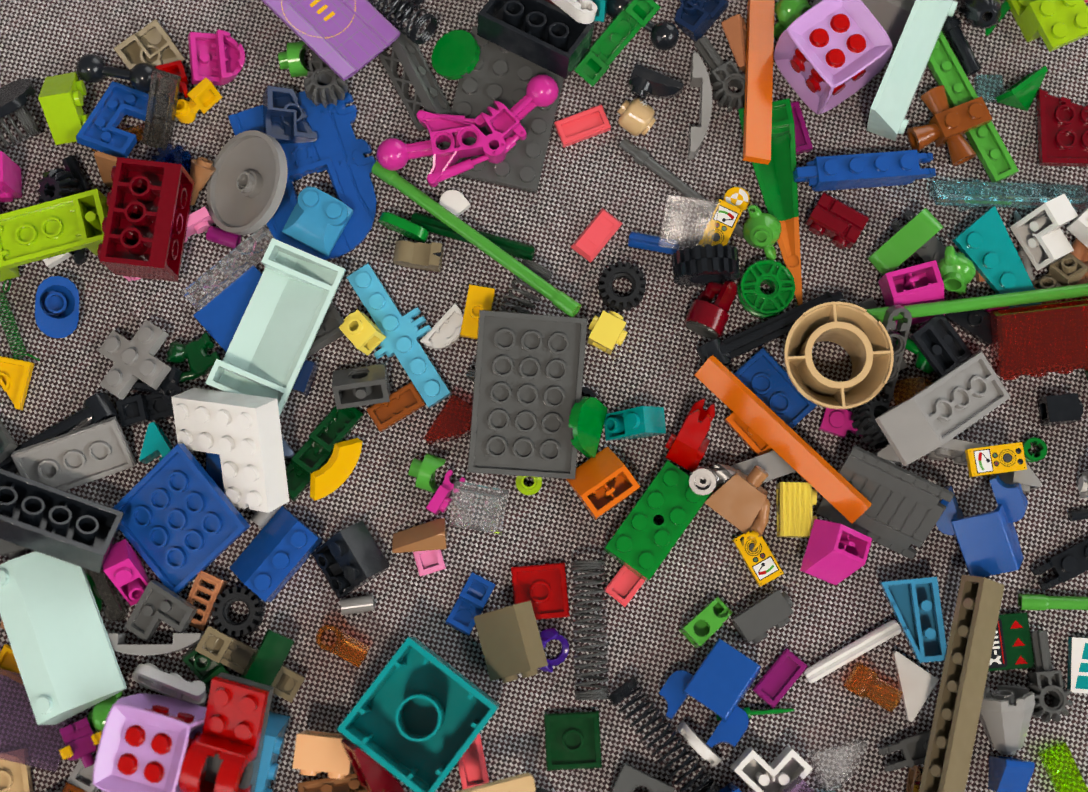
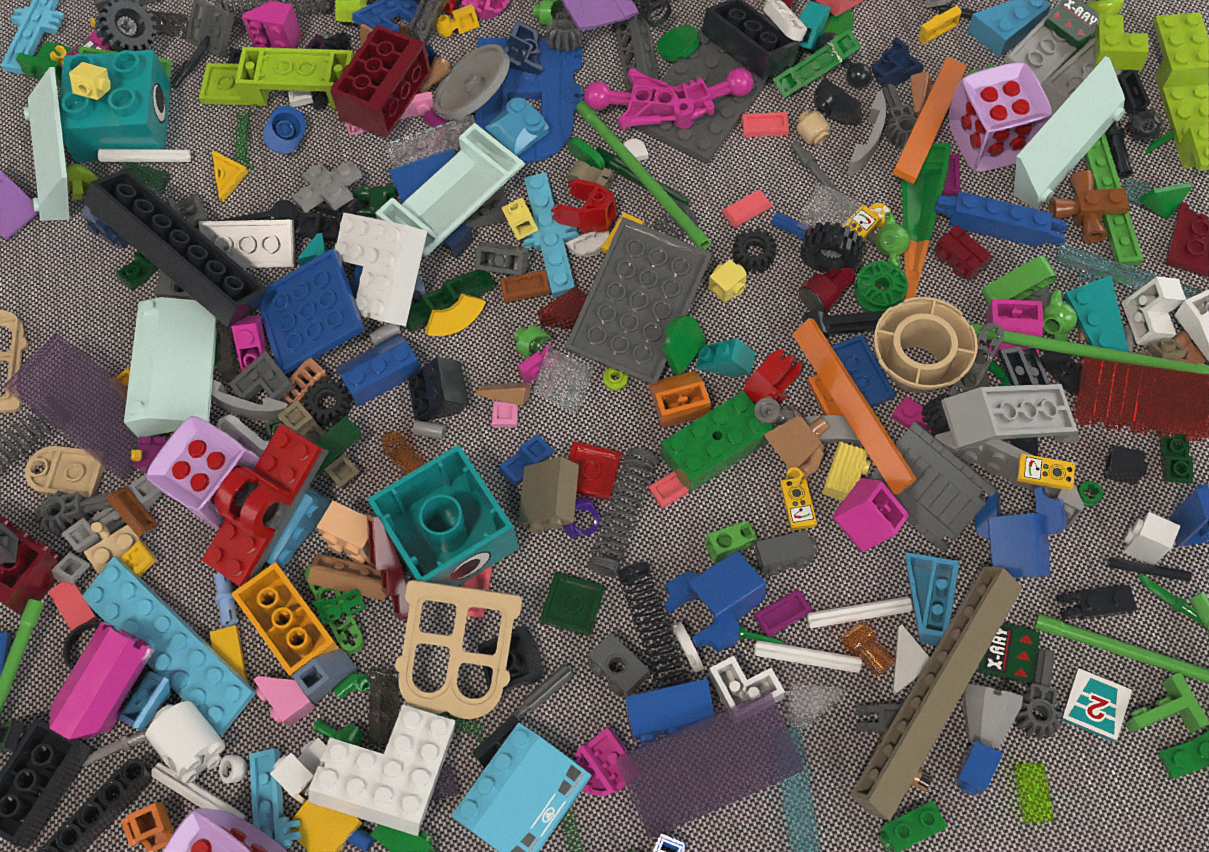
camera: 25 degrees right, 15 degrees down
(443, 297) = (596, 213): none -> red piece
(818, 714) = (808, 656): none -> white axle

